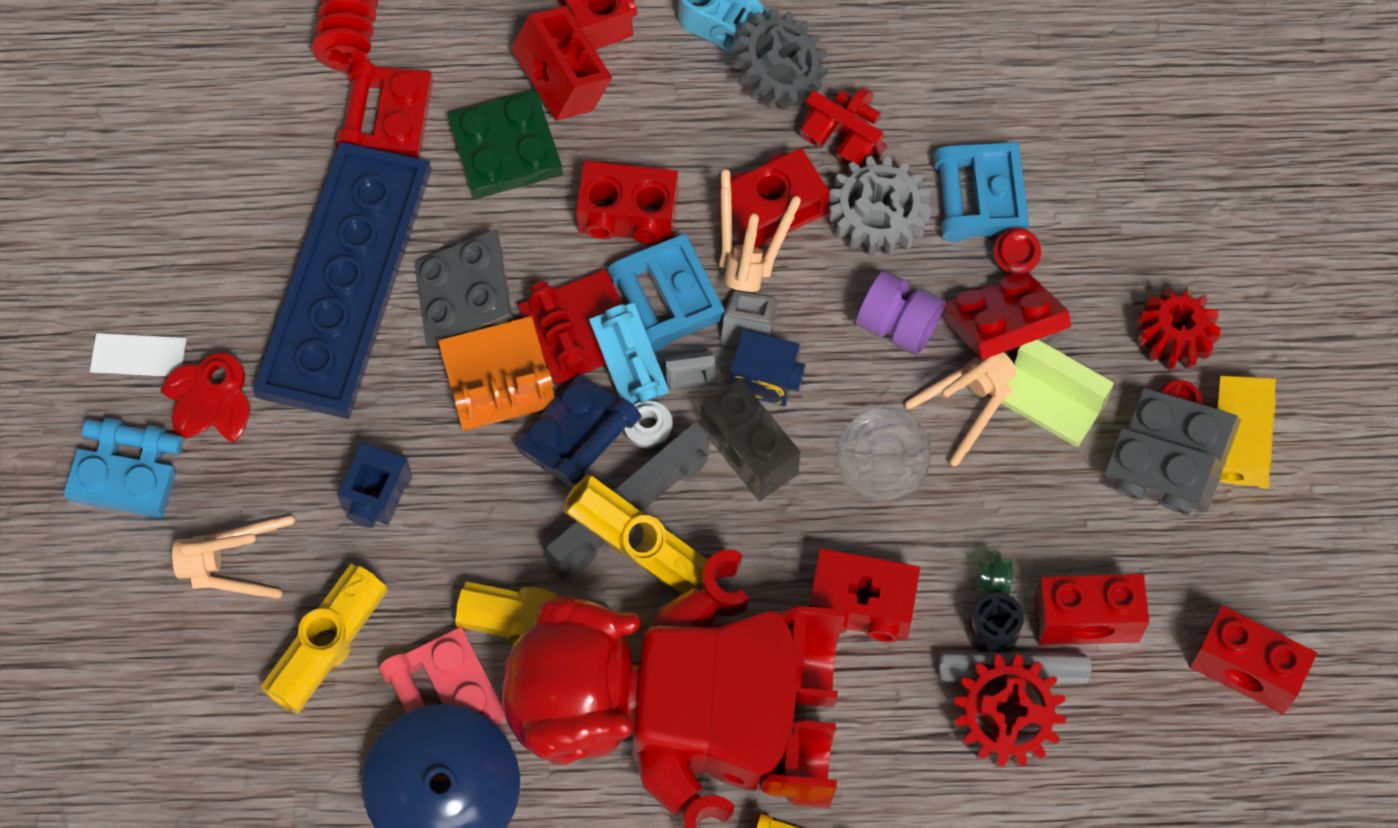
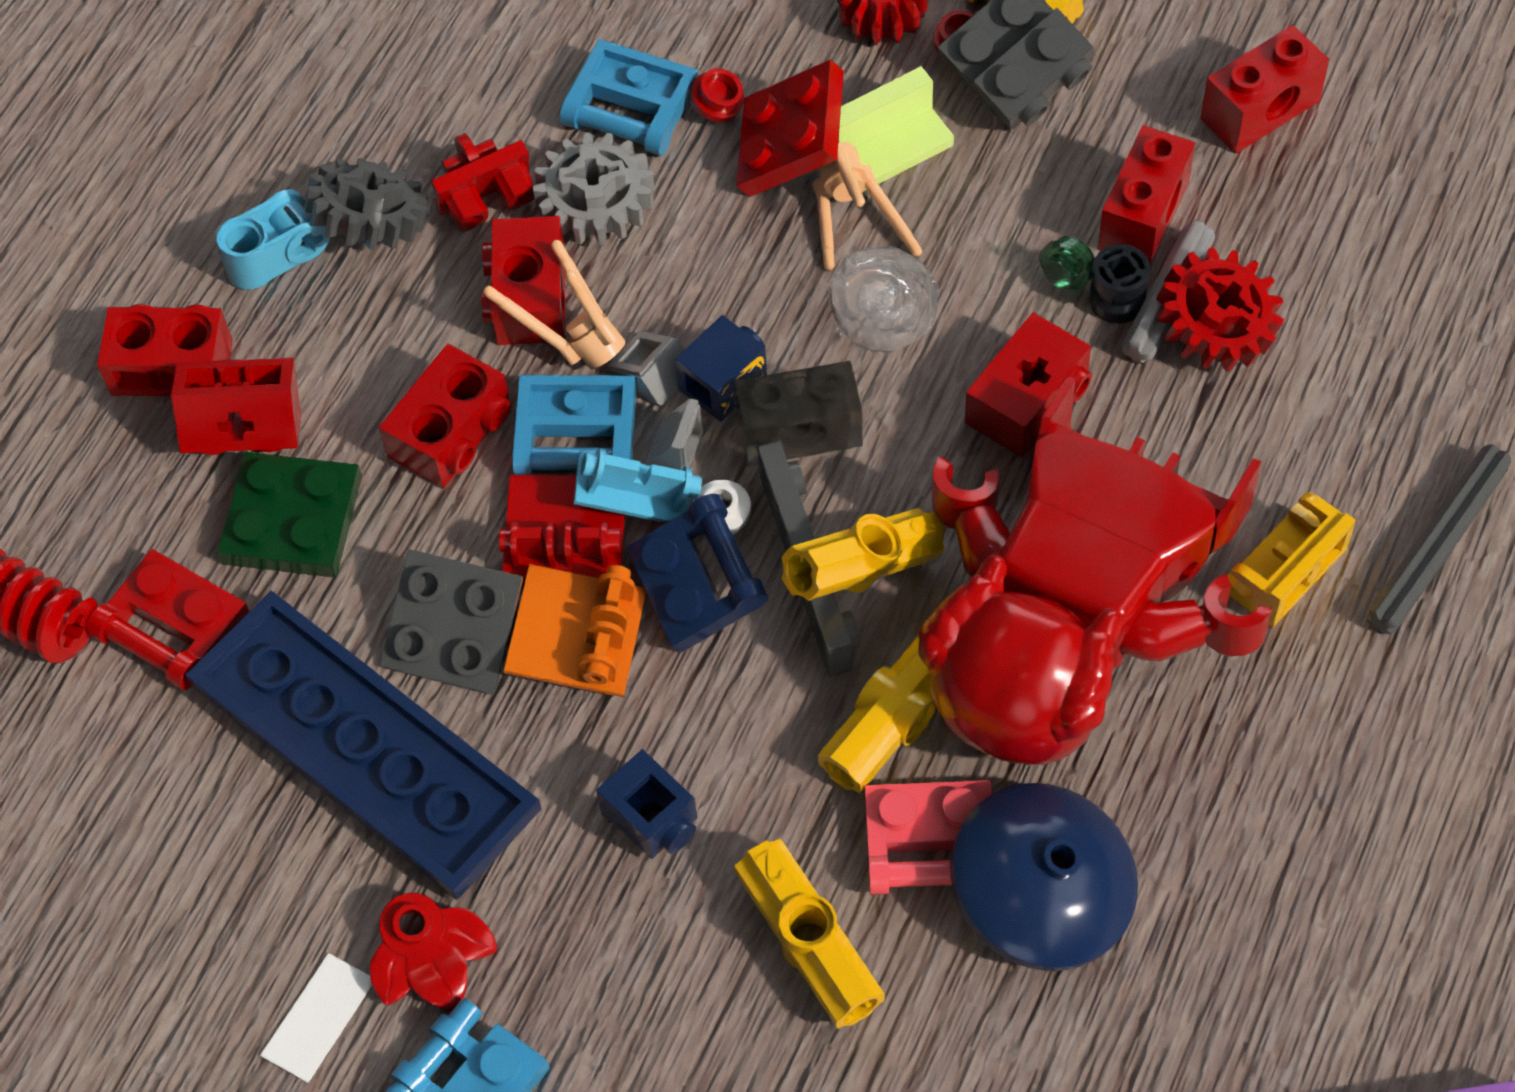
camera: 60 degrees left, 5 degrees down
(201, 555) = (631, 1034): light nougat plant -> none
(899, 312) = (738, 215): medium lavender wheel -> none

